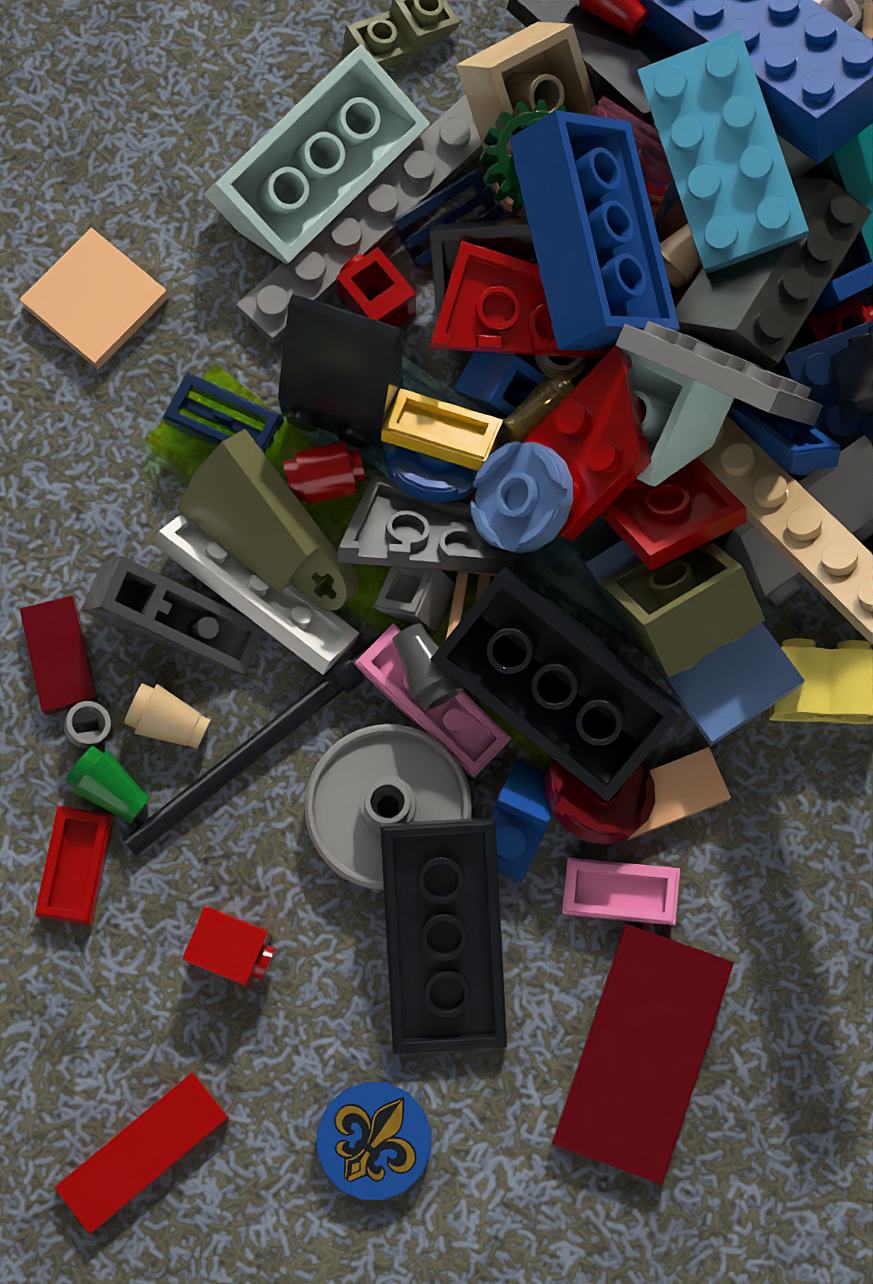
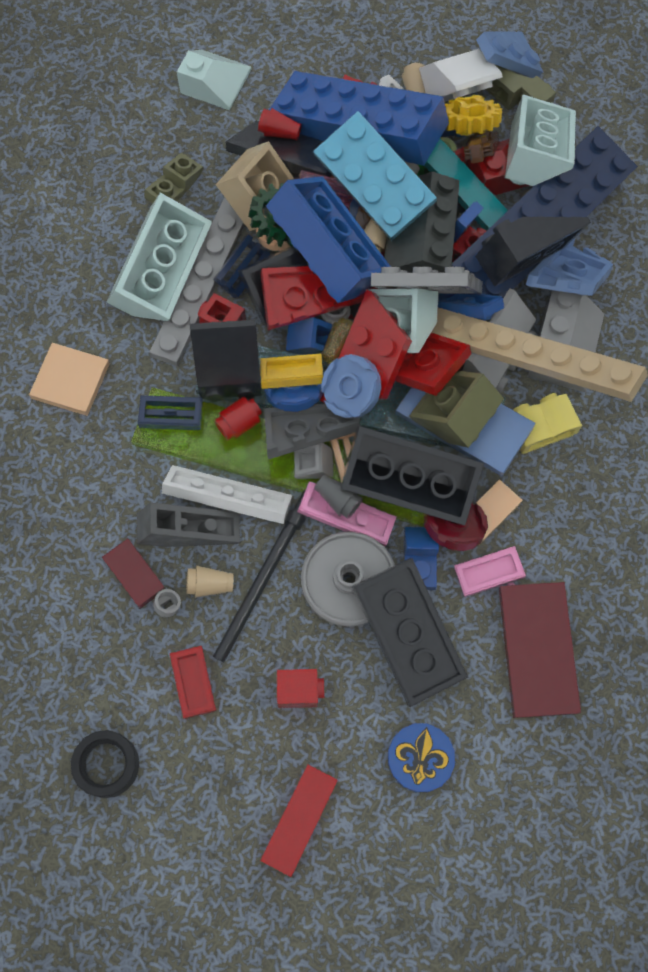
camera: 25 degrees left, 5 degrees down
(107, 784) = (191, 630): green cone -> none
(262, 523) = (217, 457): olive piece -> none

